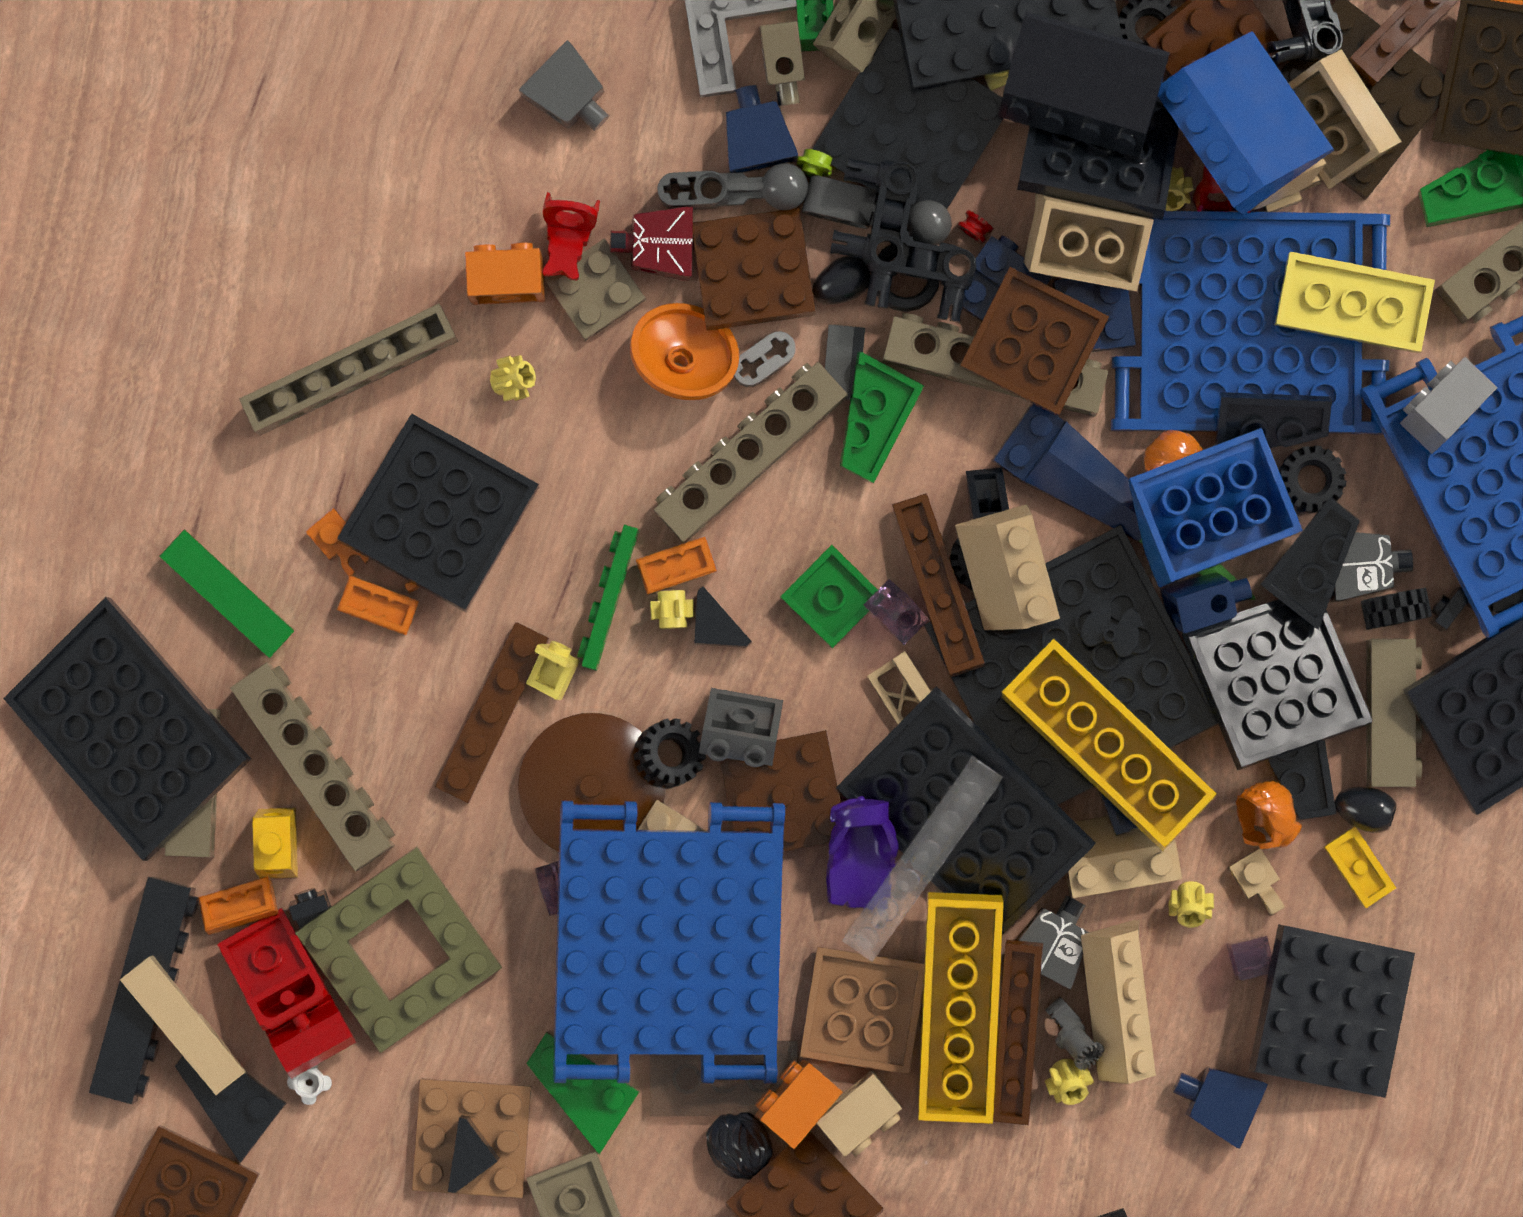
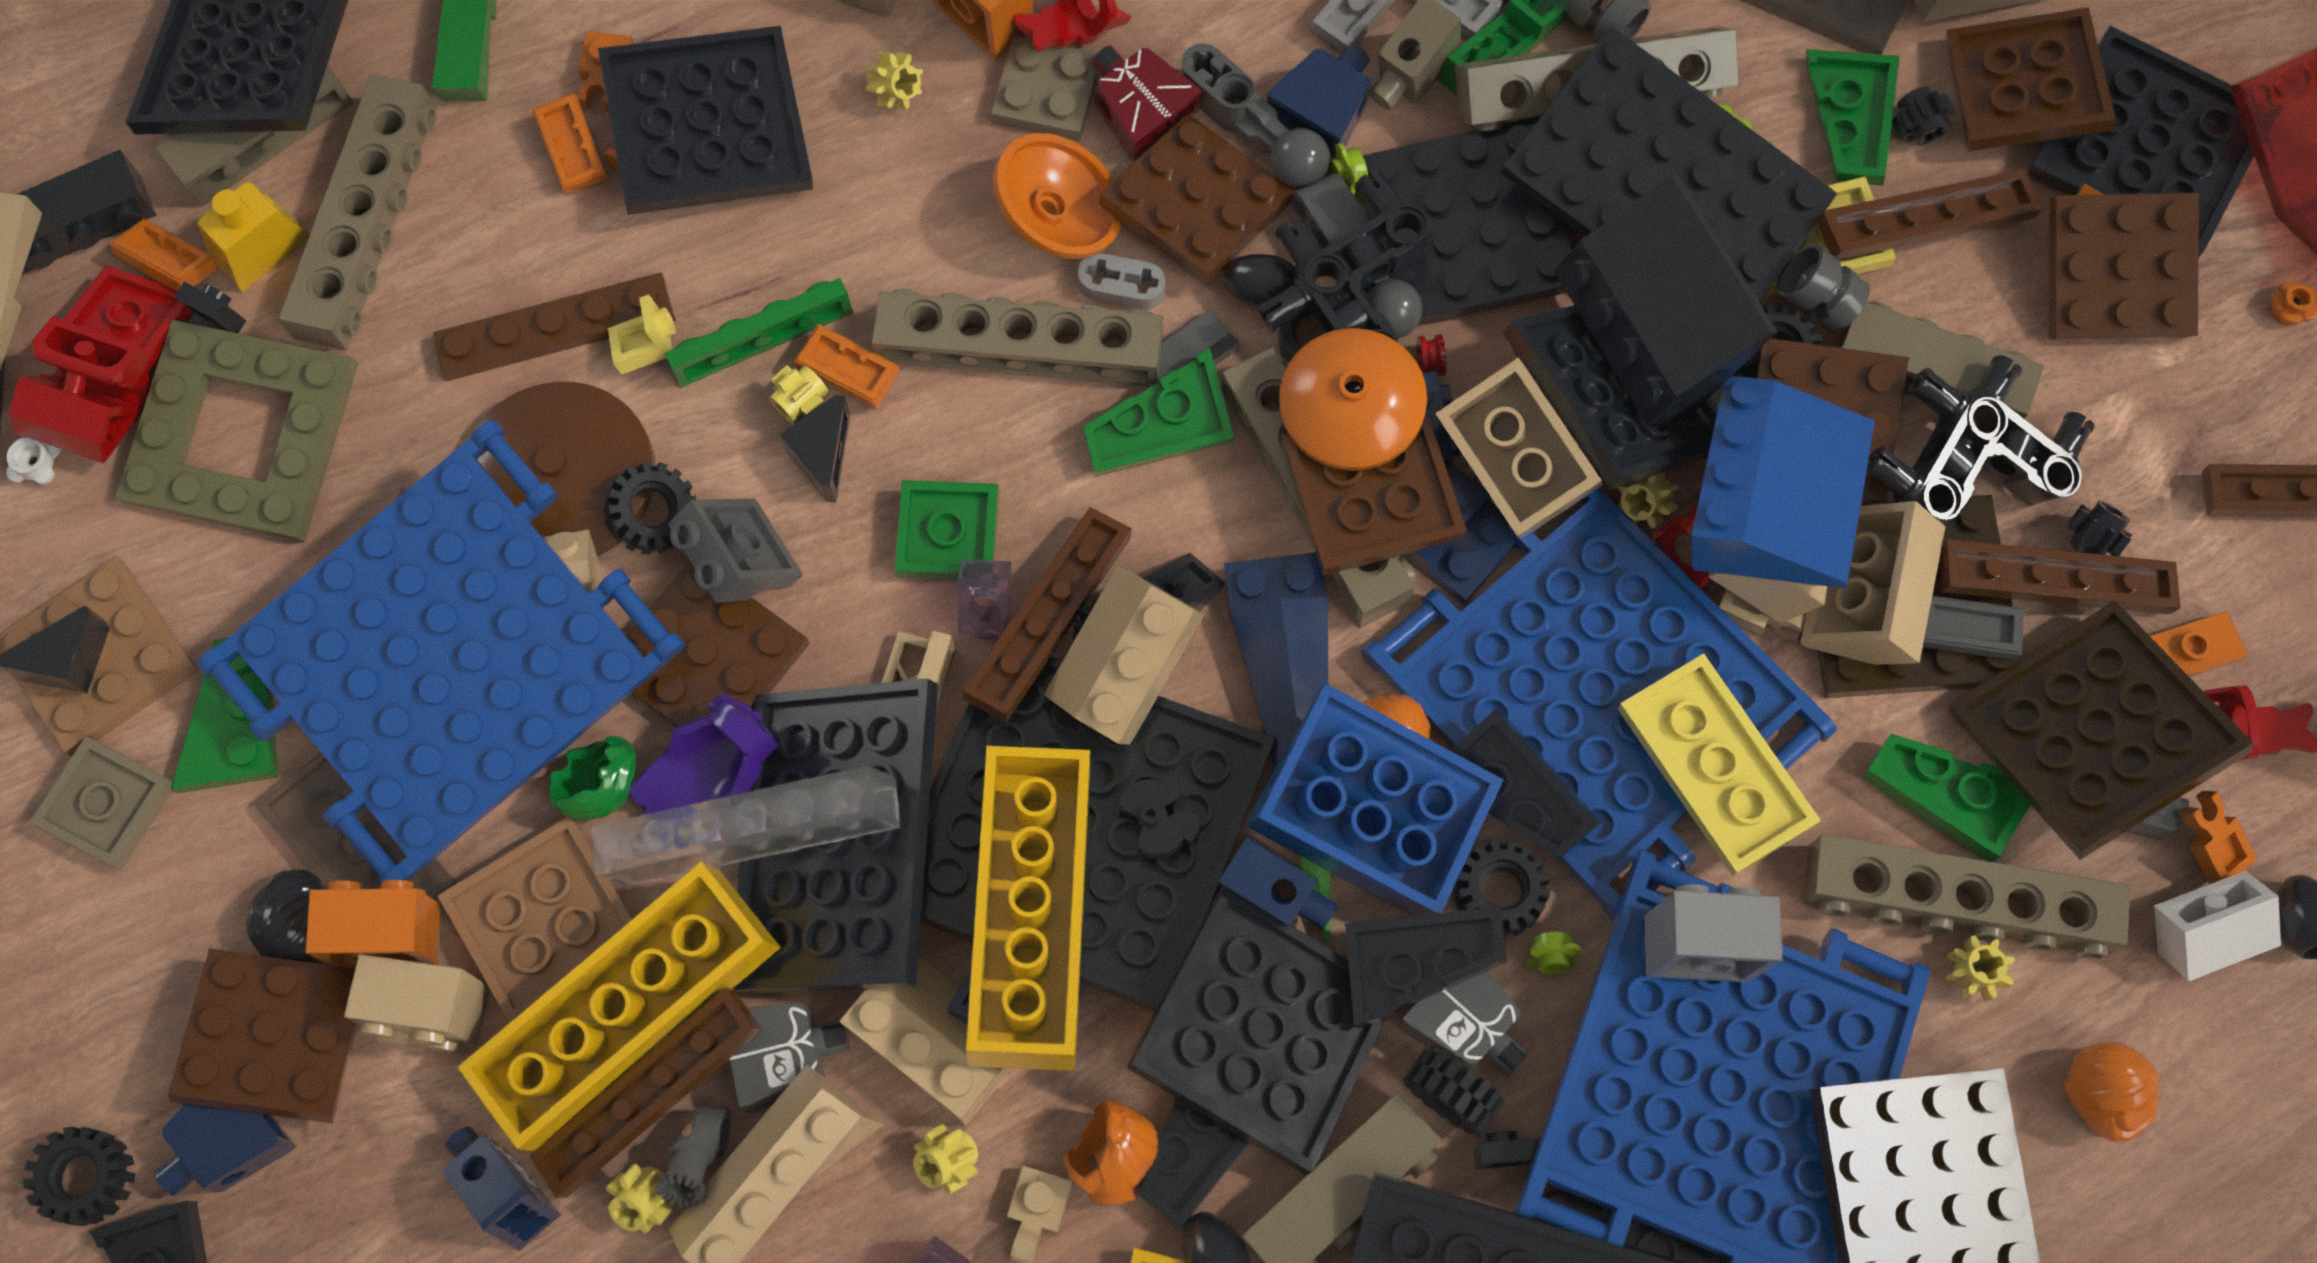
camera: 50 degrees right, 15 degrees down
(809, 916) = (594, 779): none -> green hair
(949, 311) = (1348, 427): none -> orange dish
(1011, 1151) = (497, 1189): none -> dark blue torso
(1370, 486) = (1553, 953): none -> lime plate
(1406, 86) = (1974, 628): none -> dark grey tile

